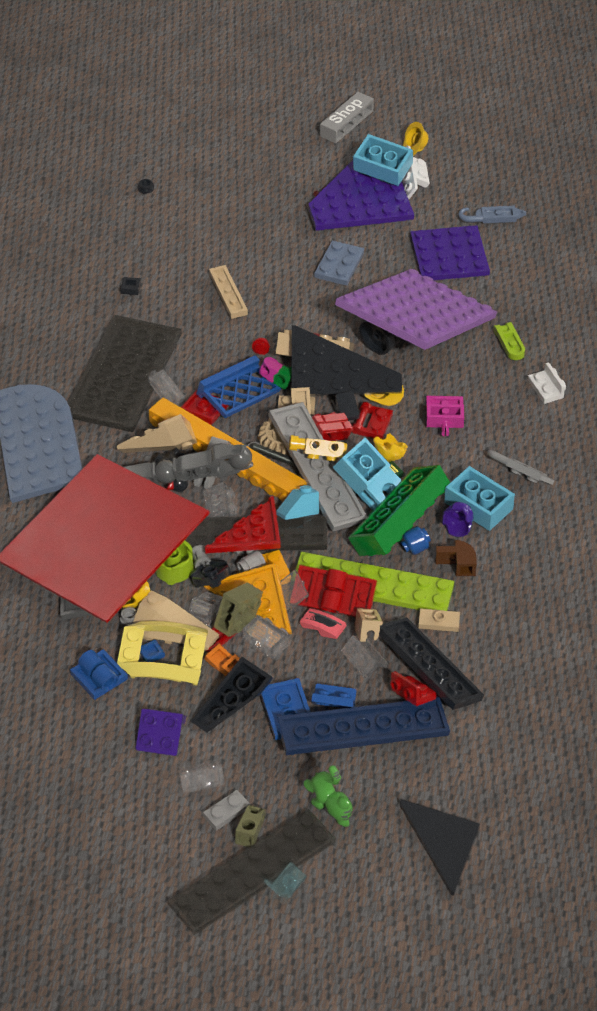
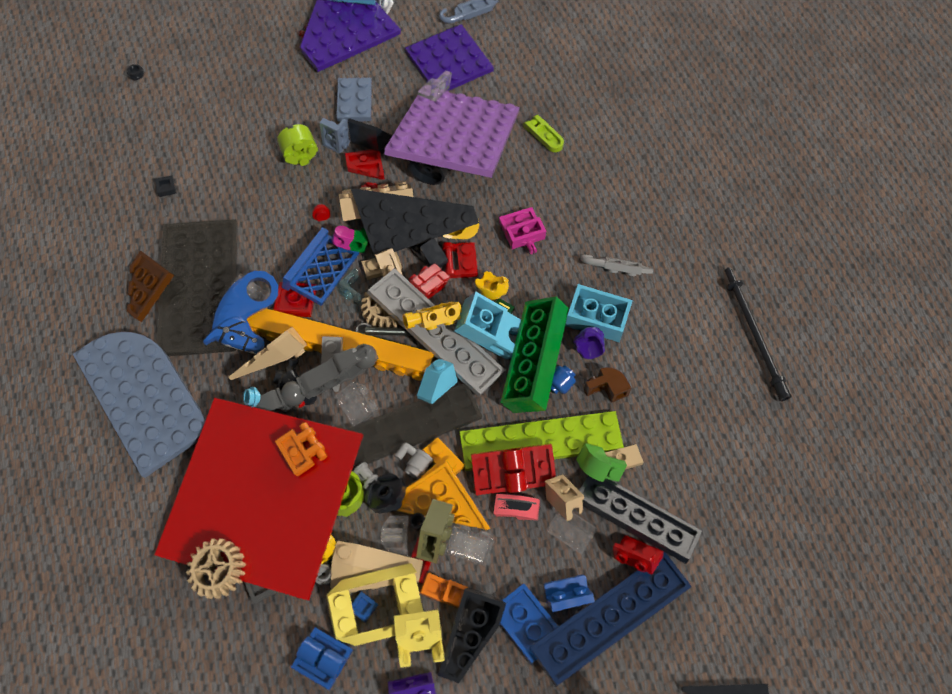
camera: 25 degrees left, 15 degrees up
(38, 570) = (212, 554): none -> tan gear
(82, 353) = (147, 285): none -> reddish brown plate
(129, 460) = (251, 396): none -> medium azure plate
(138, 400) = (230, 319): none -> blue animal
(145, 507) = (295, 452): none -> orange plate
(187, 679) = (418, 633): none -> light yellow panel
(228, 291) = (264, 163): tan plate -> none
(254, 532) = (406, 432): red tile -> none
(255, 414) = (348, 292): none -> clear light blue bracket
(265, 283) = (297, 145): none -> lime brick
(293, 590) = (475, 482): clear piece -> none
(304, 285) = (334, 135): none -> sand blue bracket
(323, 317) = (365, 163): none -> red wing
(330, 290) = (367, 135): none -> black slope
(413, 612) = (598, 465): none -> bright green brick
(421, 269) = (436, 88): none -> clear panel
(547, 384) = (598, 168): white bracket -> none

